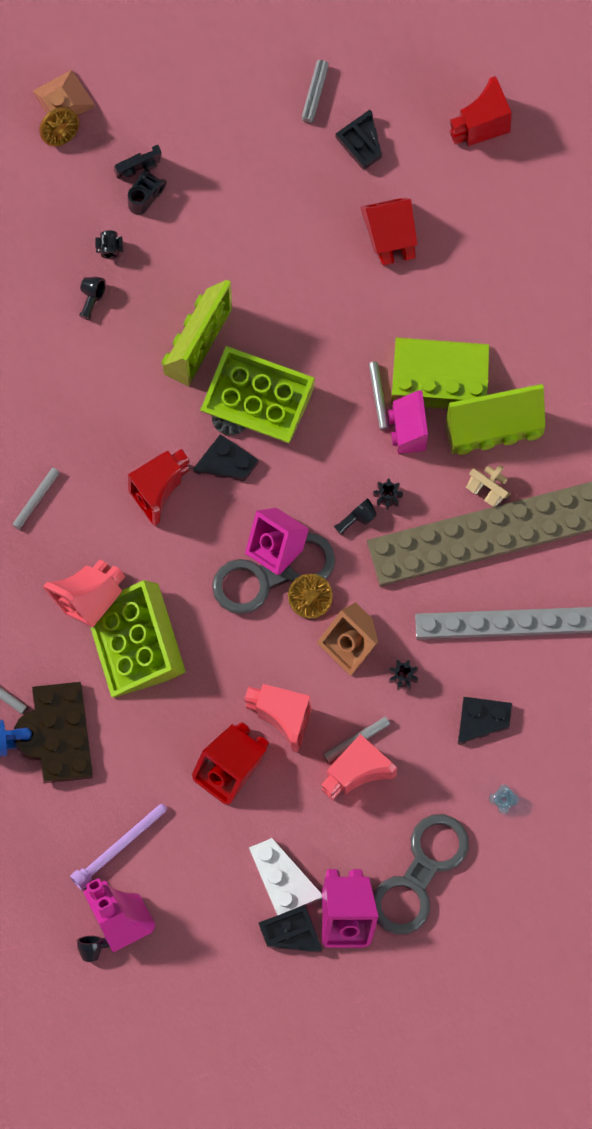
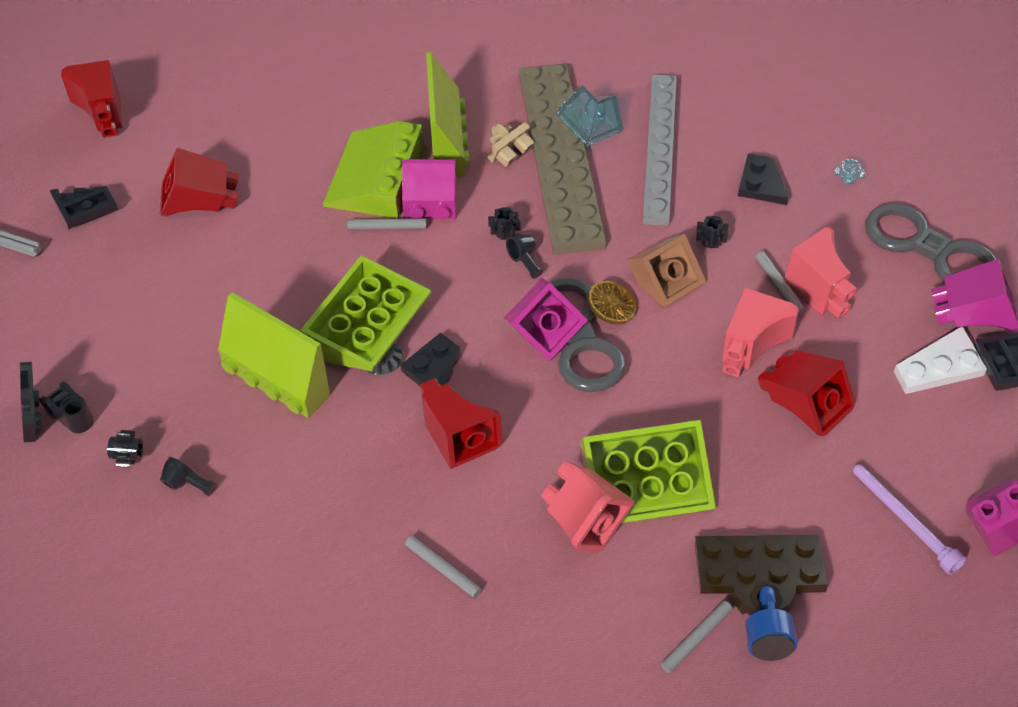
camera: 80 degrees left, 20 degrees down
(531, 553) = (591, 116): none -> clear light blue slope

